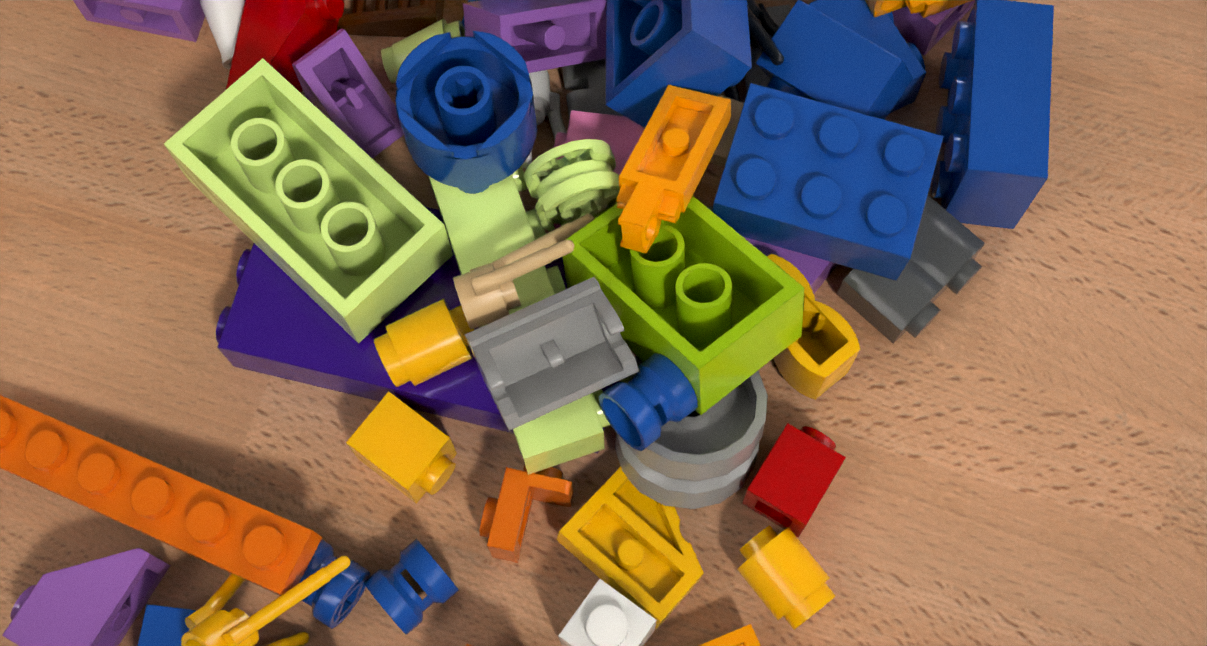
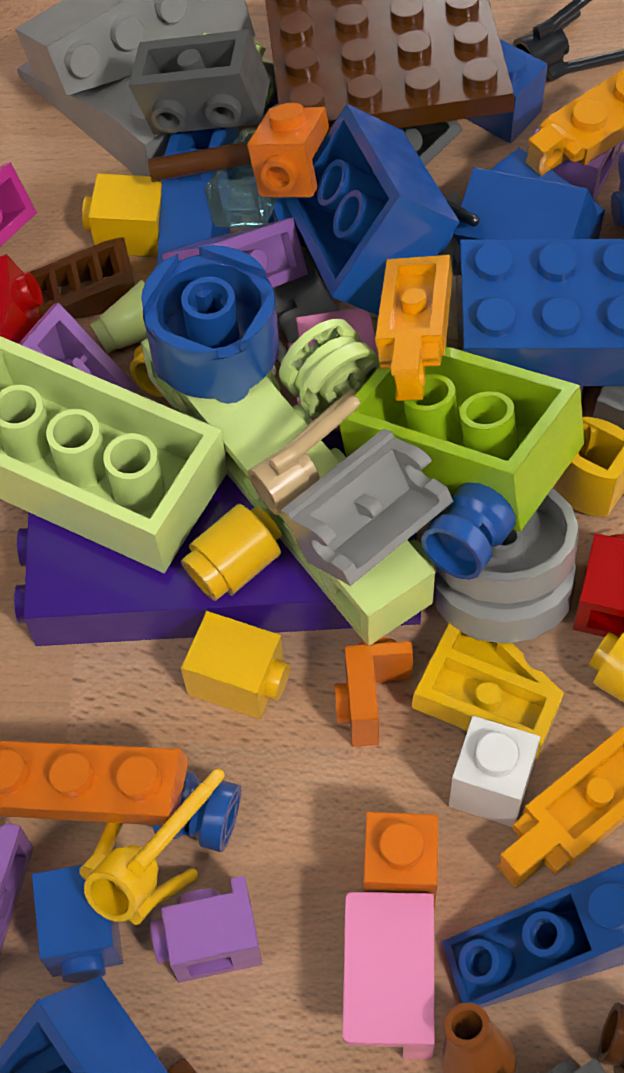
camera: 15 degrees left, 10 degrees down
(399, 597) = (286, 788): blue wheel -> none

